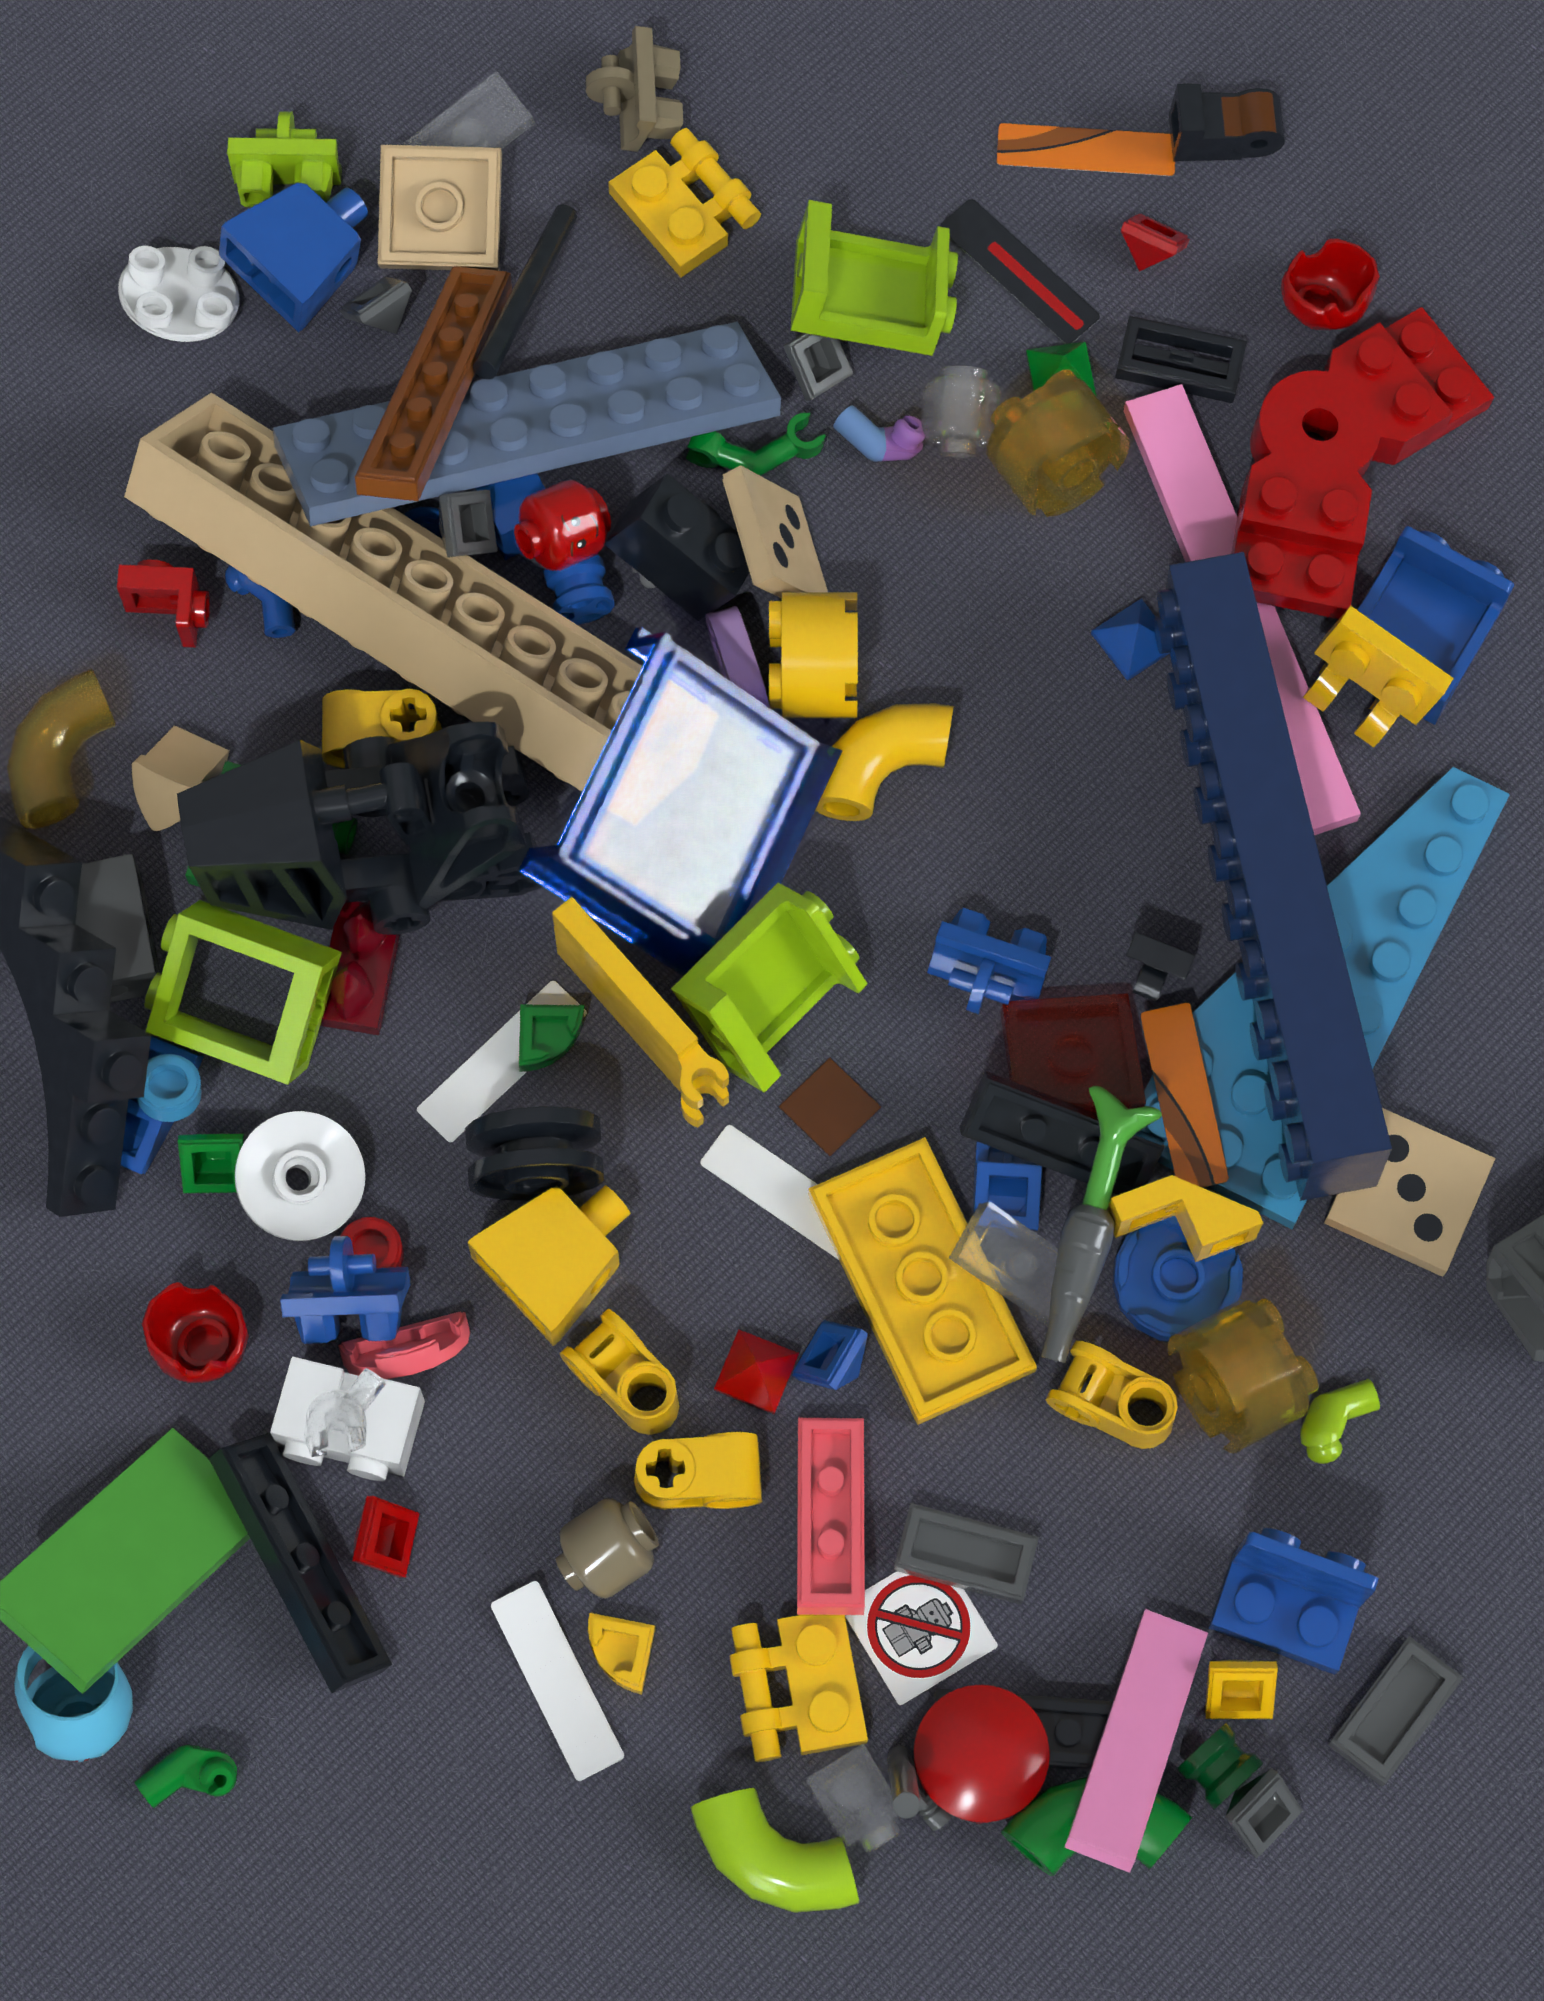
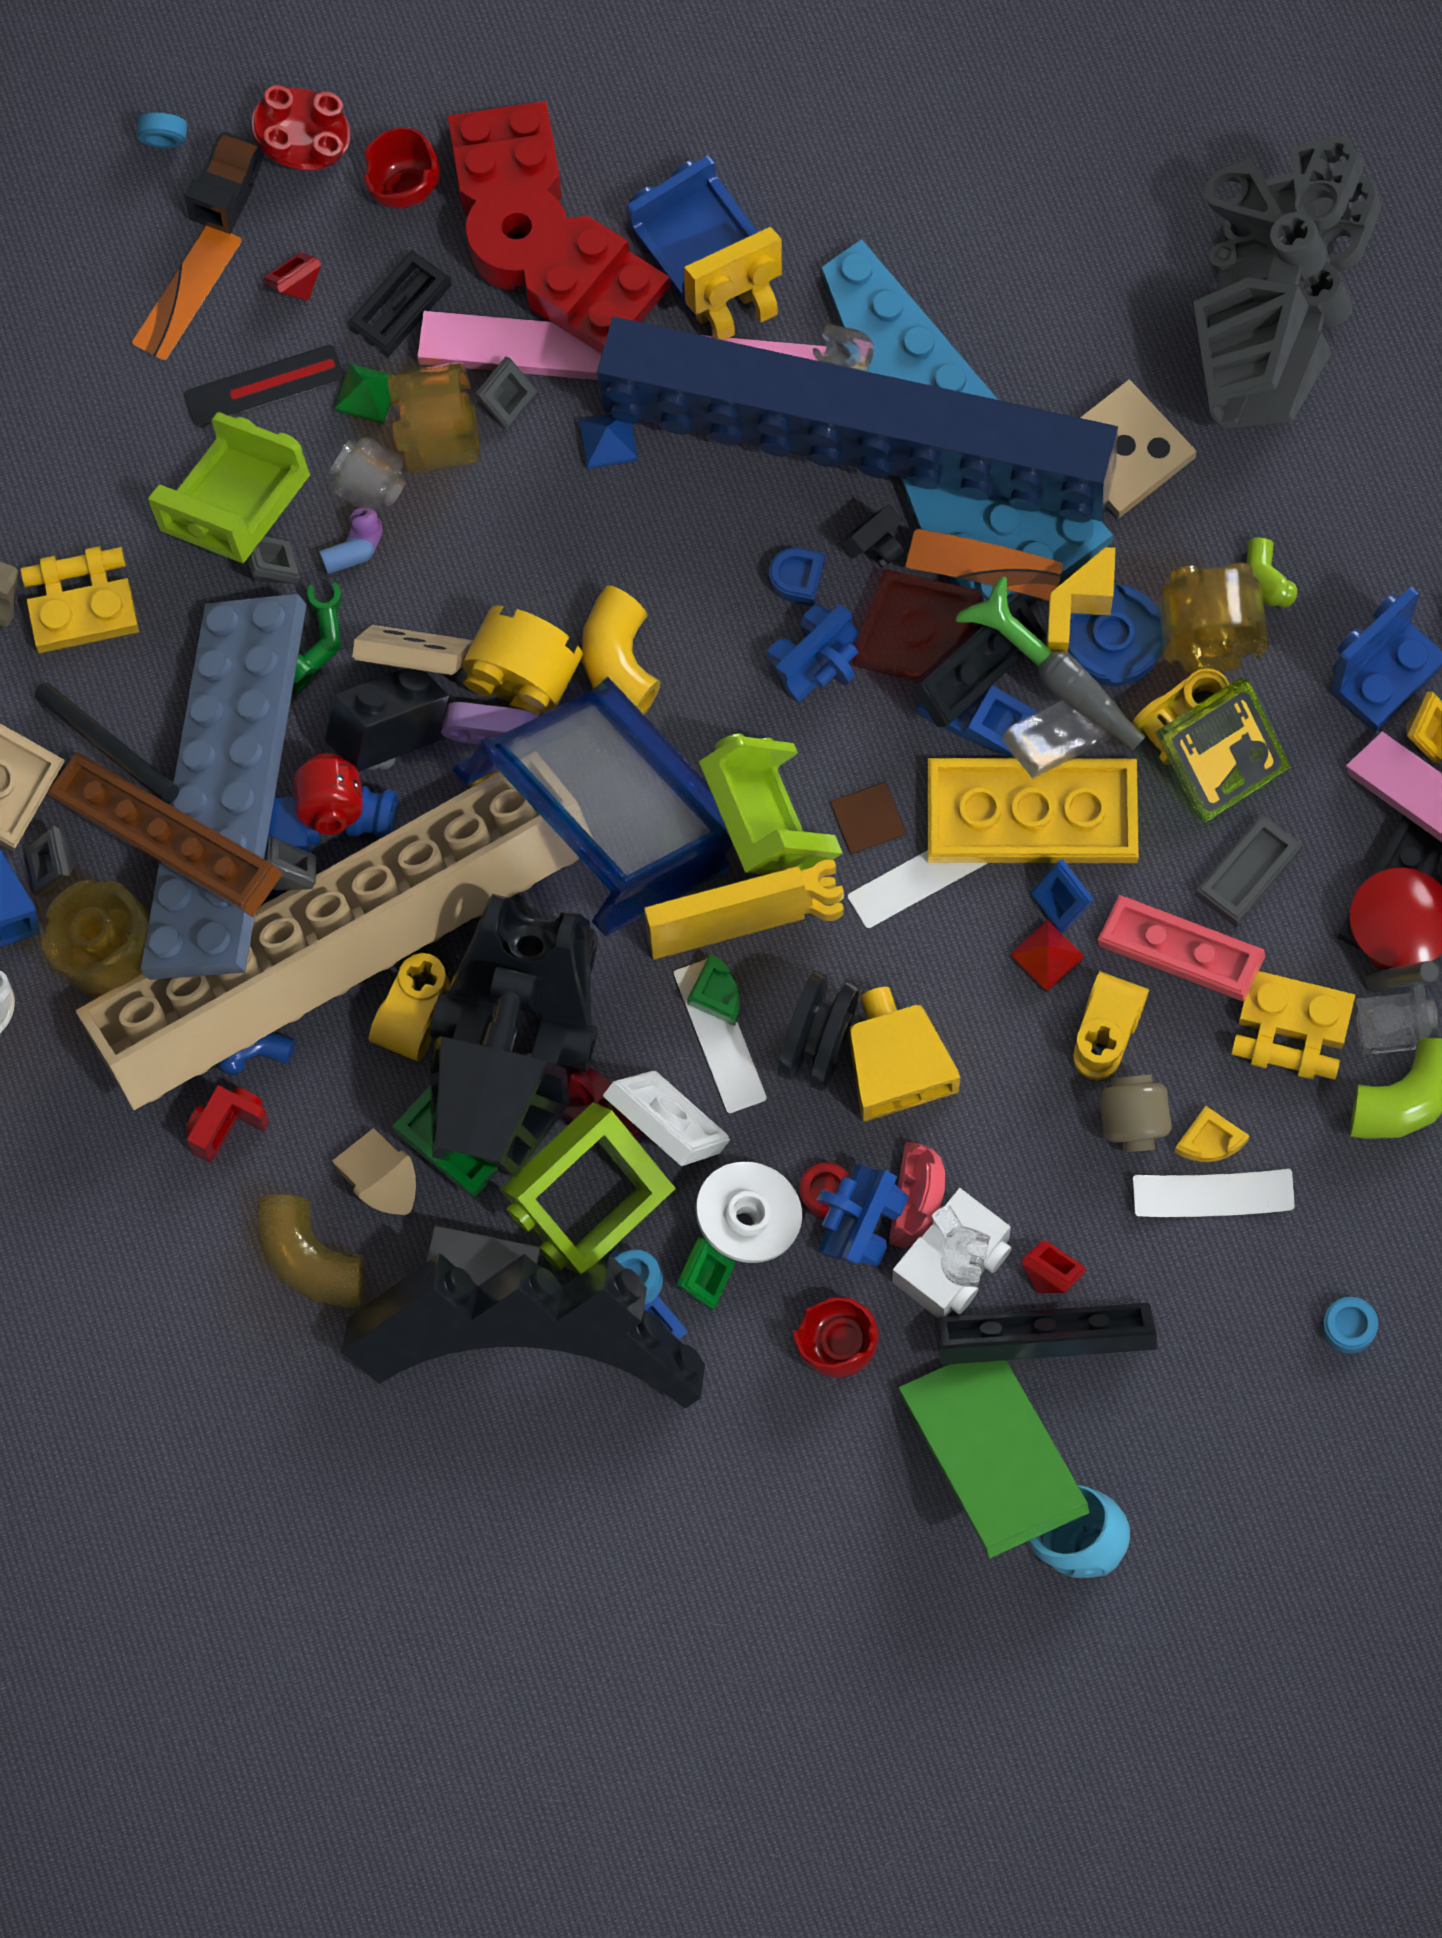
camera: 60 degrees left, 0 degrees up
(190, 1768) = (1163, 1477): green arm -> none
(299, 370) = (96, 935): none -> clear yellow brick
(361, 1038) = (667, 1117): none -> white tile
(467, 1906) = (1350, 1325): none -> dark azure tile
(615, 1366) = (1005, 1045): yellow piece -> none
(919, 1633) = (1292, 928): sticker -> none
(1076, 904) = (797, 574): none -> blue tile
(1088, 1456) = (1223, 749): none -> tile
(1130, 508) = (506, 392): none -> dark grey slope
(1248, 37) = (161, 130): none -> dark azure tile
(1326, 169) = (301, 127): none -> red dish
(1353, 838) = (846, 348): none -> clear piece

